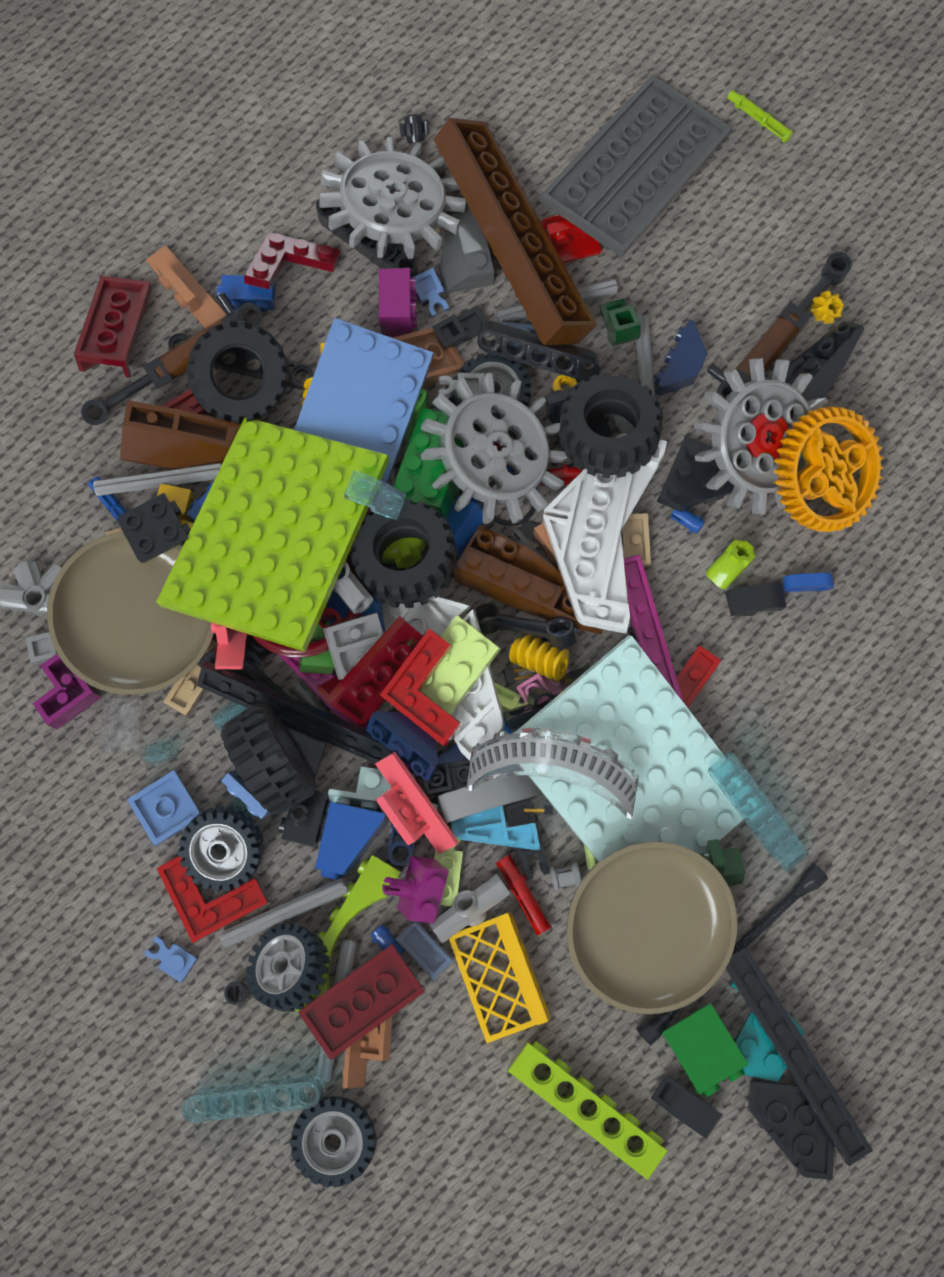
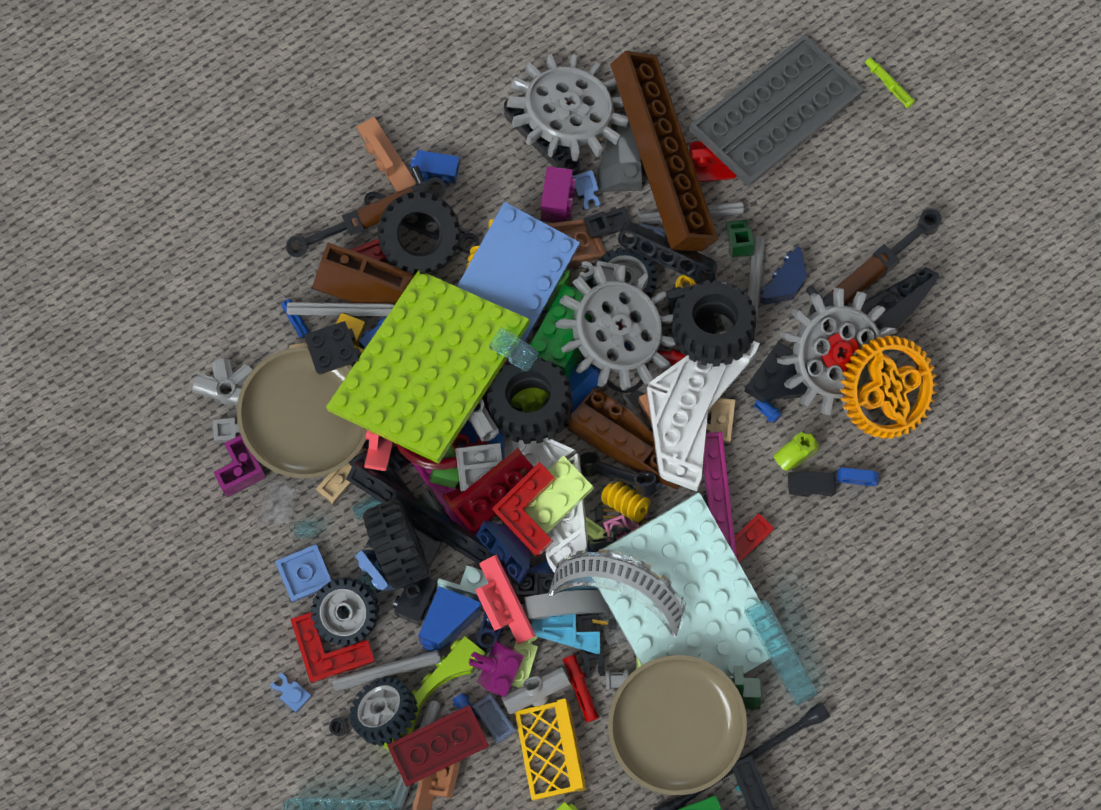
camera: 10 degrees right, 5 degrees down
(112, 323) = (322, 175): dark red plate -> none
(280, 248) = (470, 134): dark red plate -> none
(414, 128) = (596, 50): black gear -> none
(827, 307) = (921, 253): yellow gear -> none

